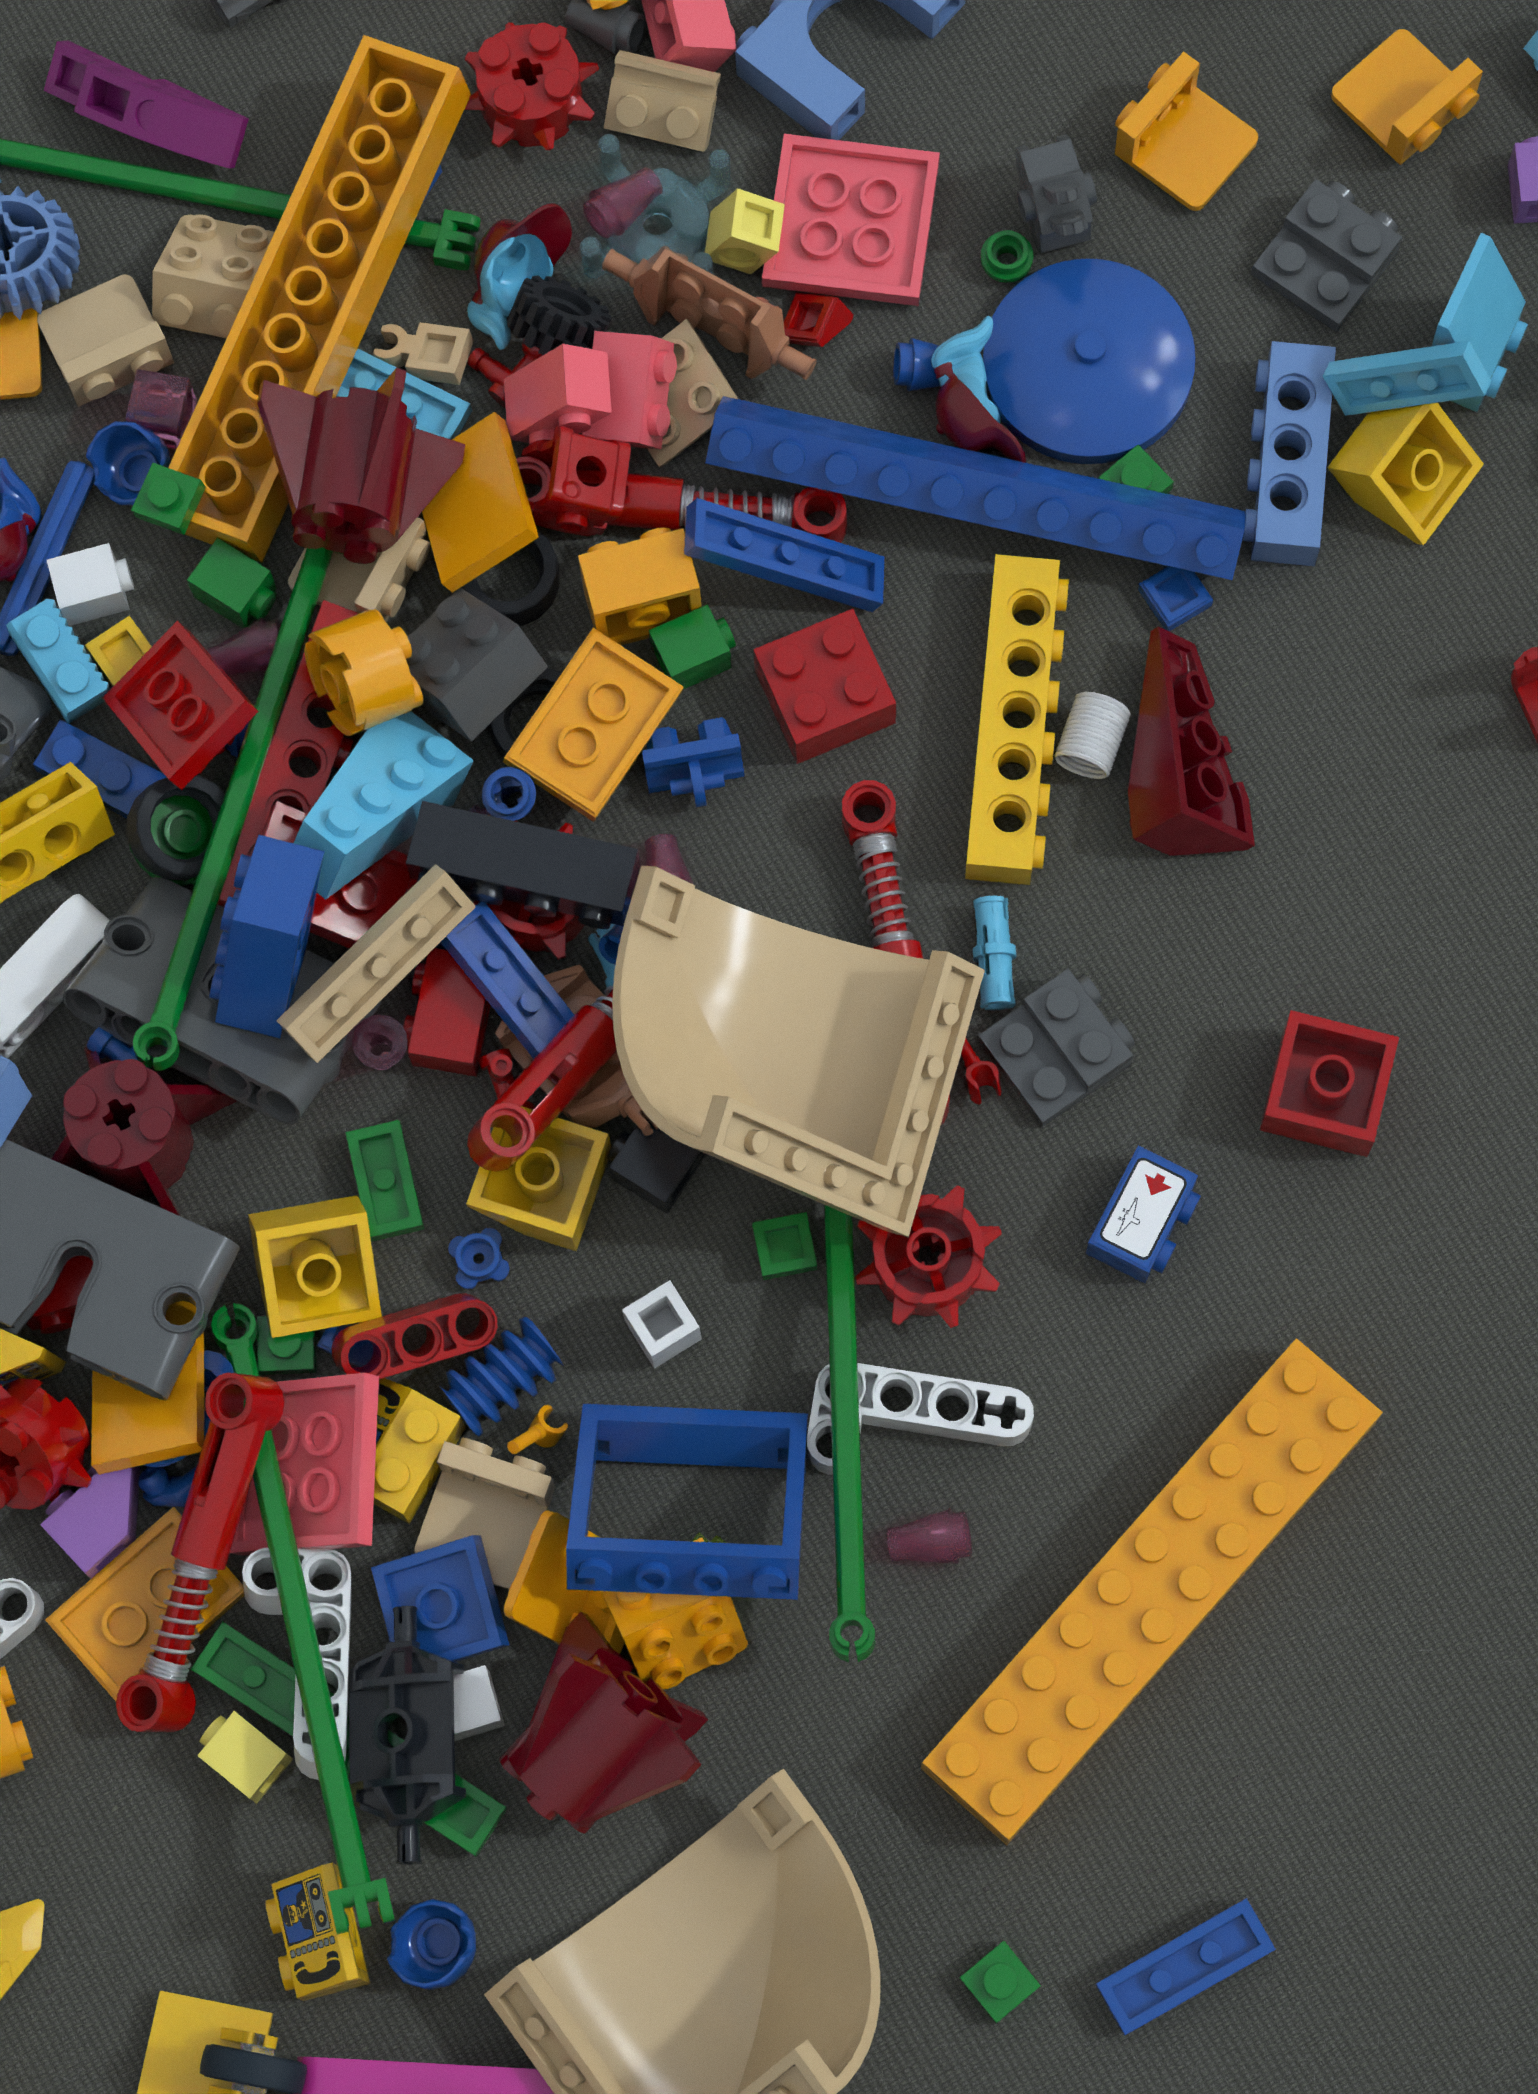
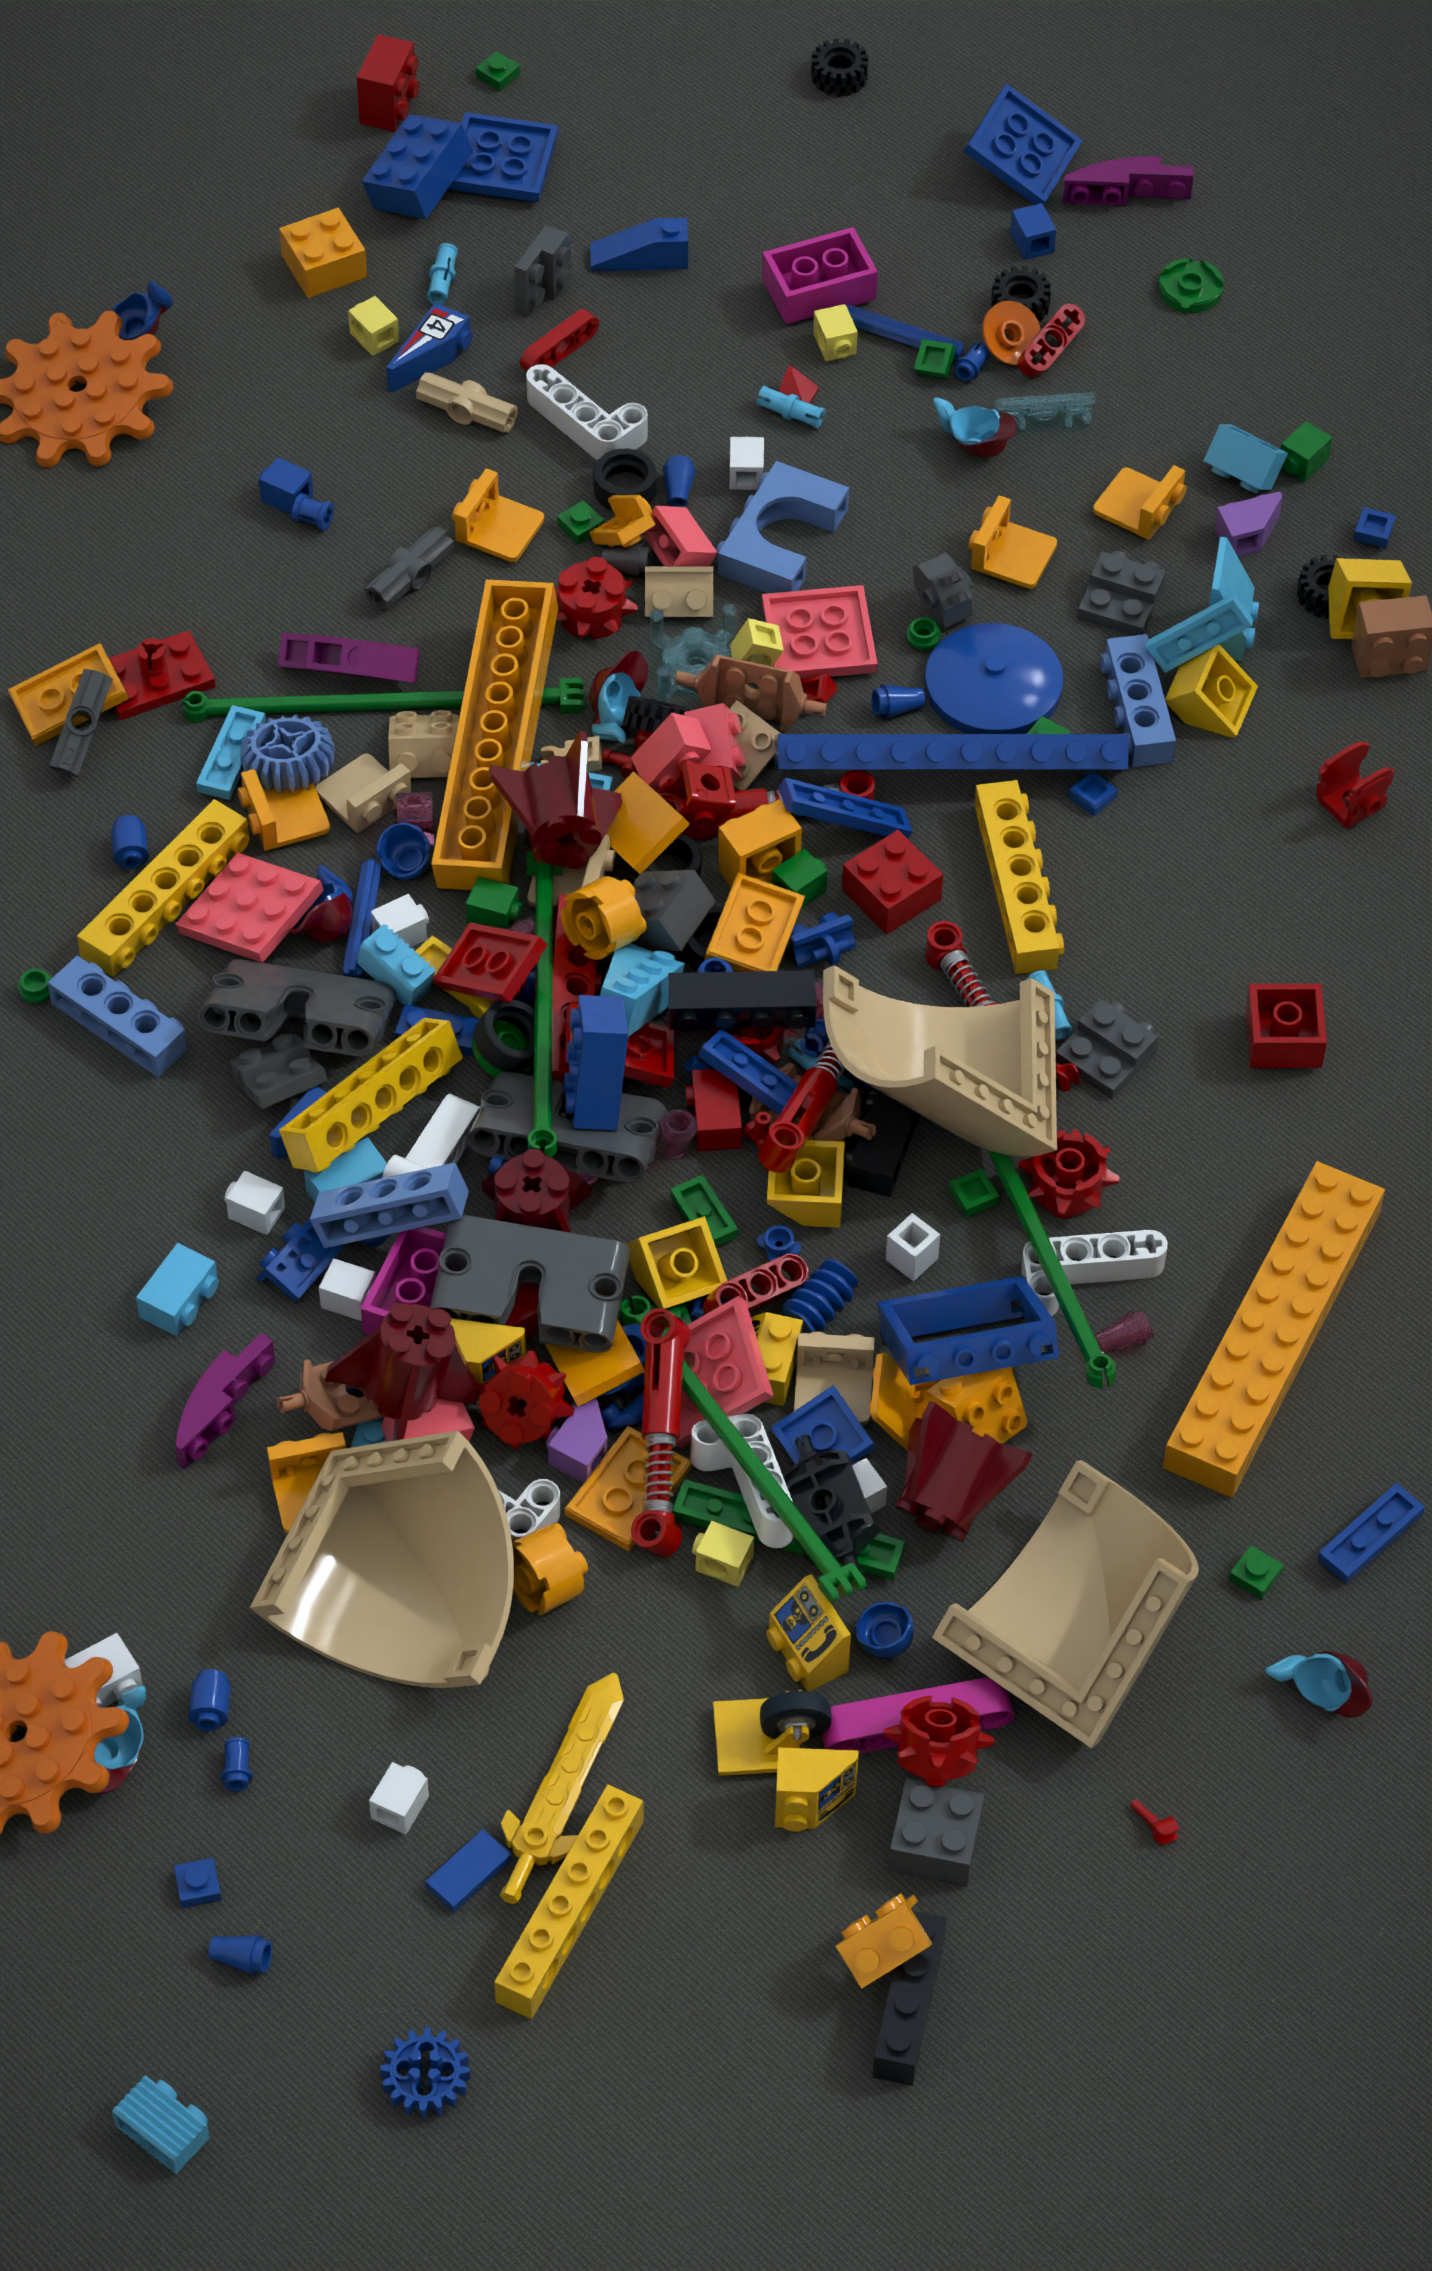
camera: 20 degrees left, 20 degrees down
(168, 498) = (443, 854): green plate -> none
(376, 963) = (668, 1069): tan plate -> none
(538, 1433) = (854, 1326): light orange hand -> none
(619, 203) = (673, 646): clear pink cone -> none
(962, 401) = (927, 708): hair -> none
(1092, 735) = (1069, 874): white piece -> none
(1143, 1214) = (1194, 1125): brick -> none
(1179, 772) = (1129, 878): dark red wedge -> none

